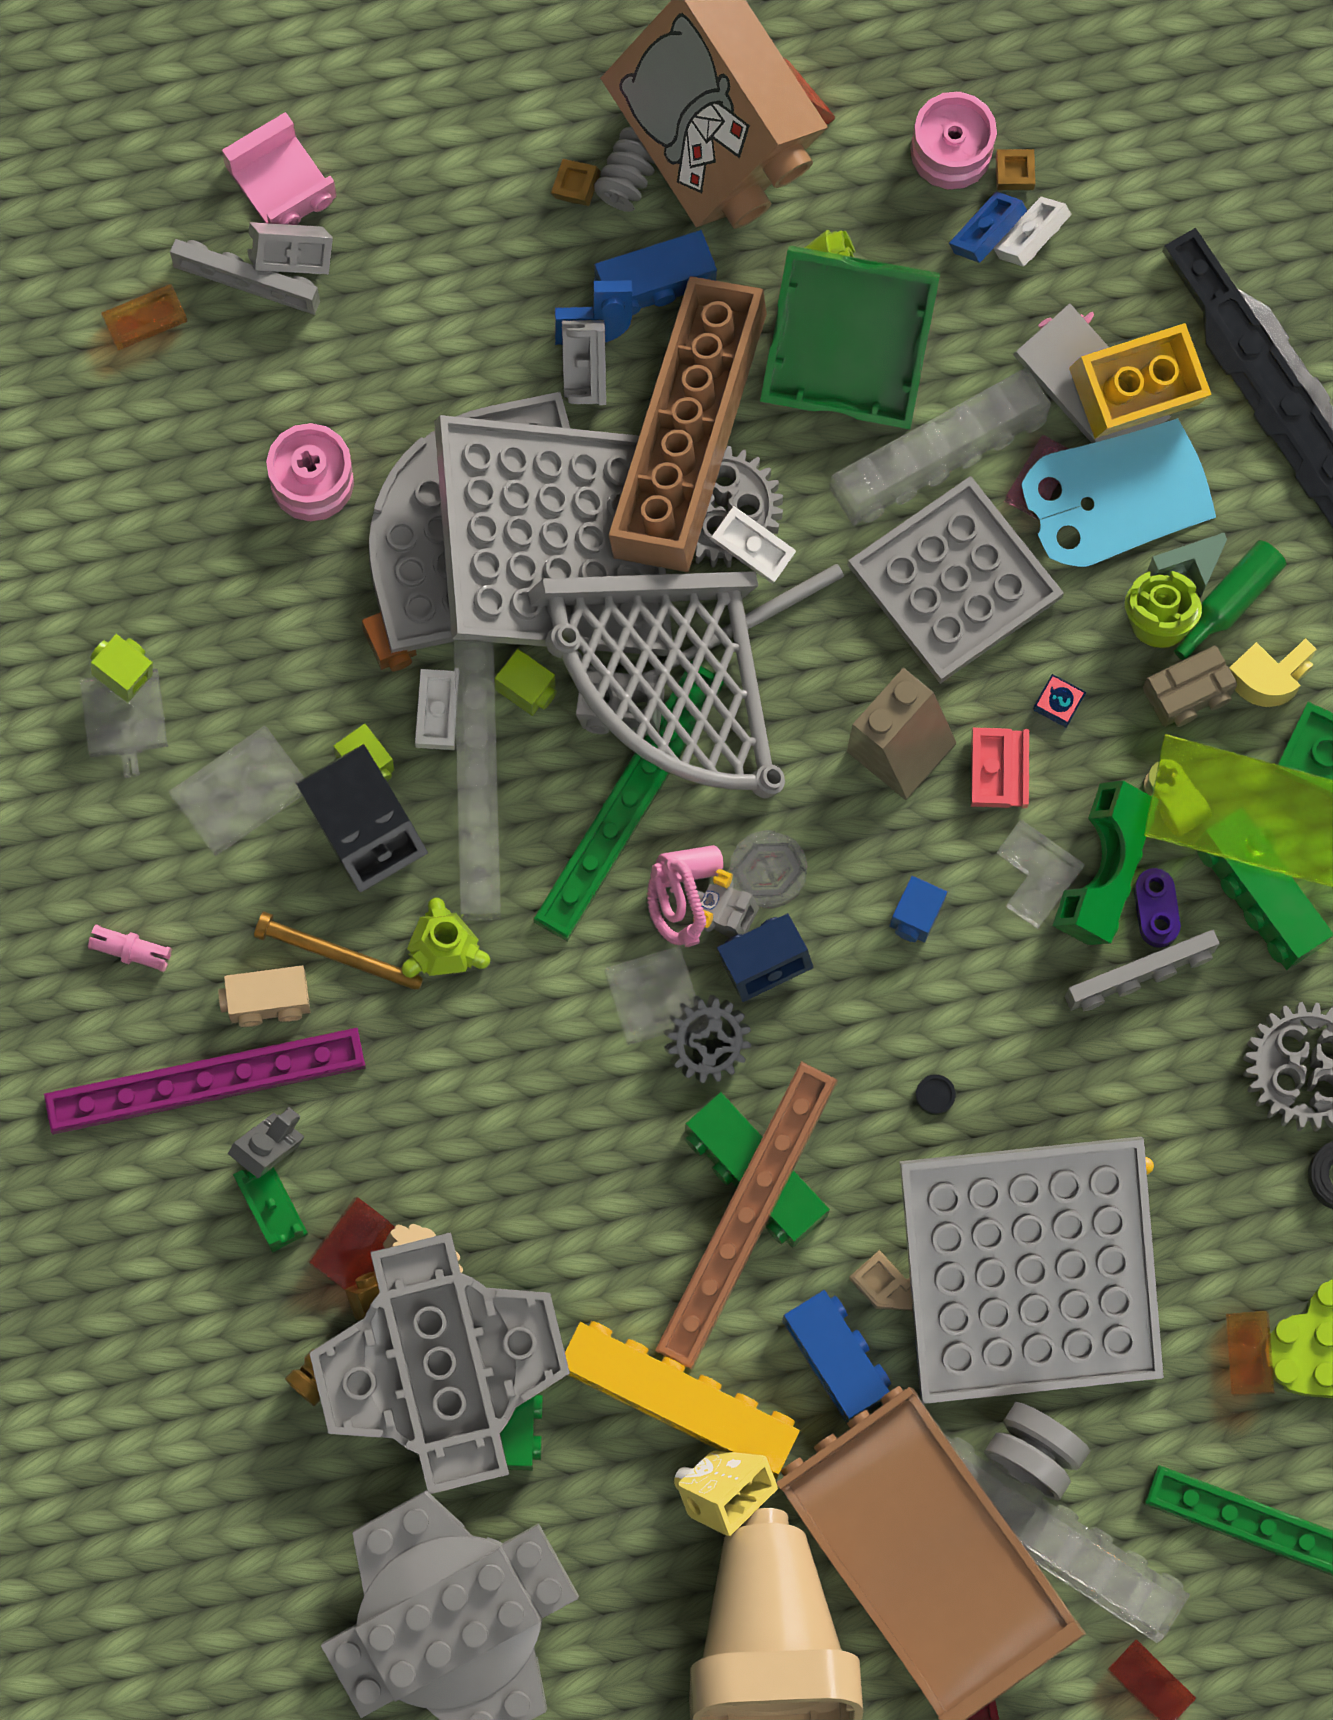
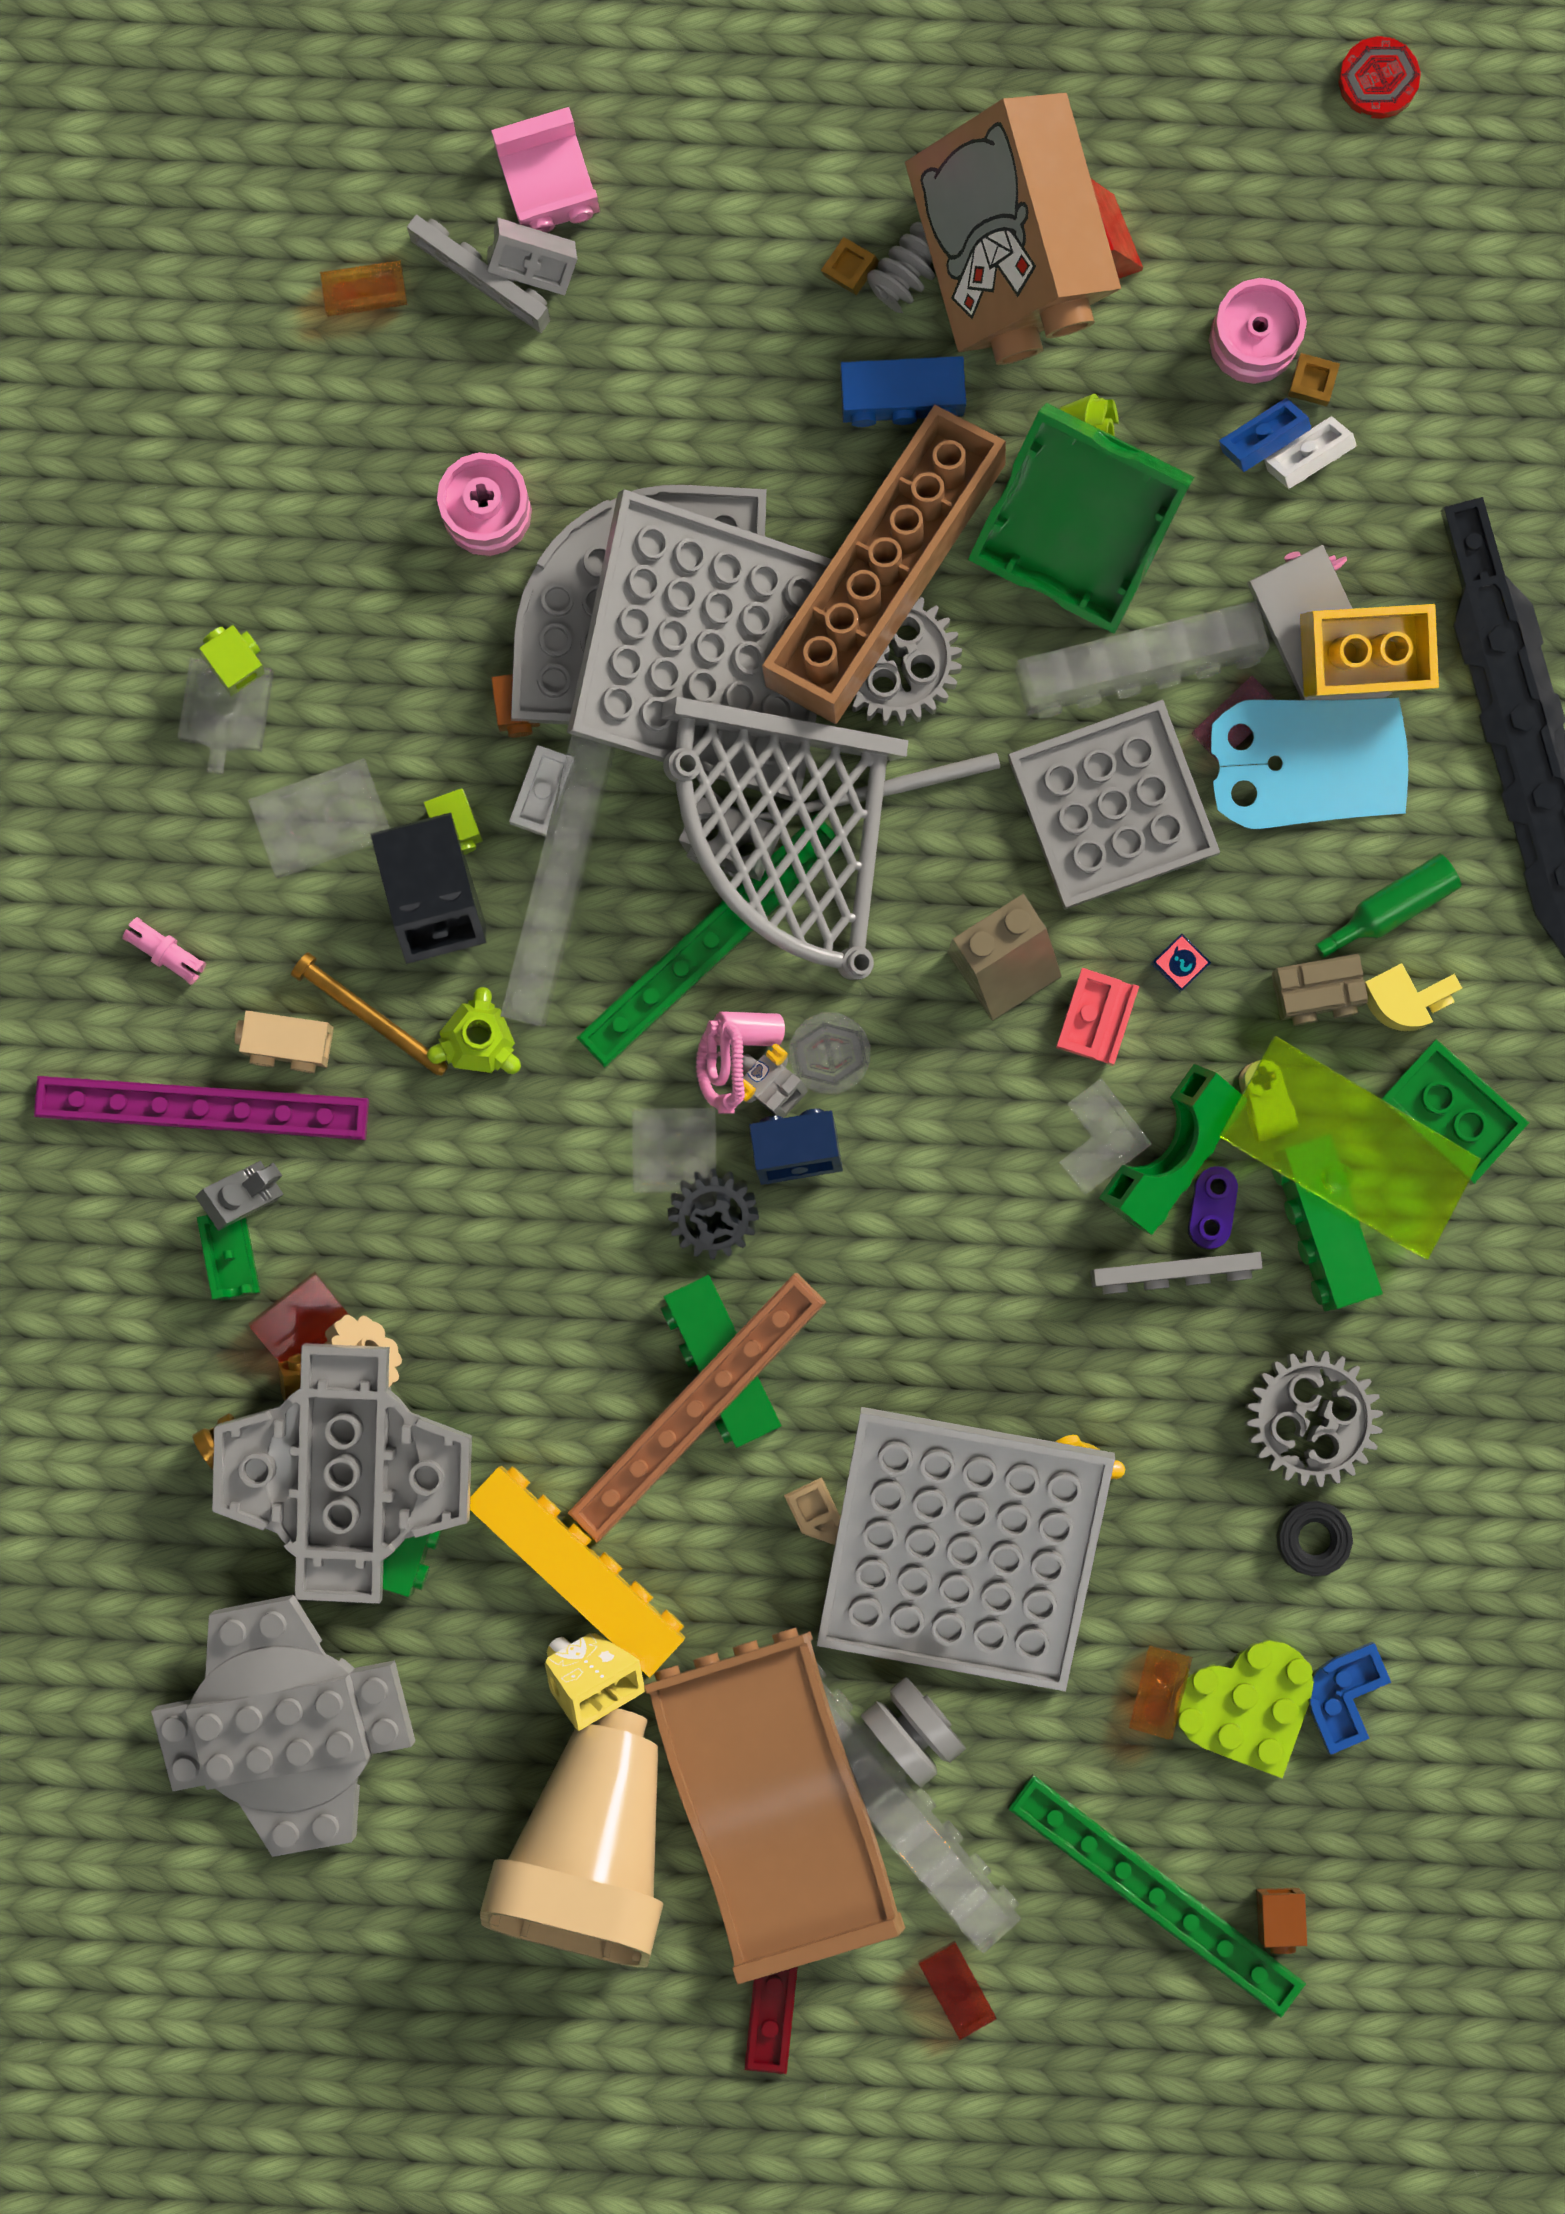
camera: 20 degrees right, 10 degrees up
(526, 683) = (640, 790): lime brick -> none
(584, 361) = (799, 465): light grey hinge -> none
(610, 303) = (831, 426): blue plate -> none
(753, 544) = (913, 712): white plate -> none
(837, 1355) = (746, 1573): blue brick -> none
(917, 910) = (966, 1142): blue brick -> none
(935, 1094) = (927, 1334): black piece -> none
(1162, 608) = (1316, 899): lime cone -> none
(1197, 558) = (1372, 854): sand green slope -> none

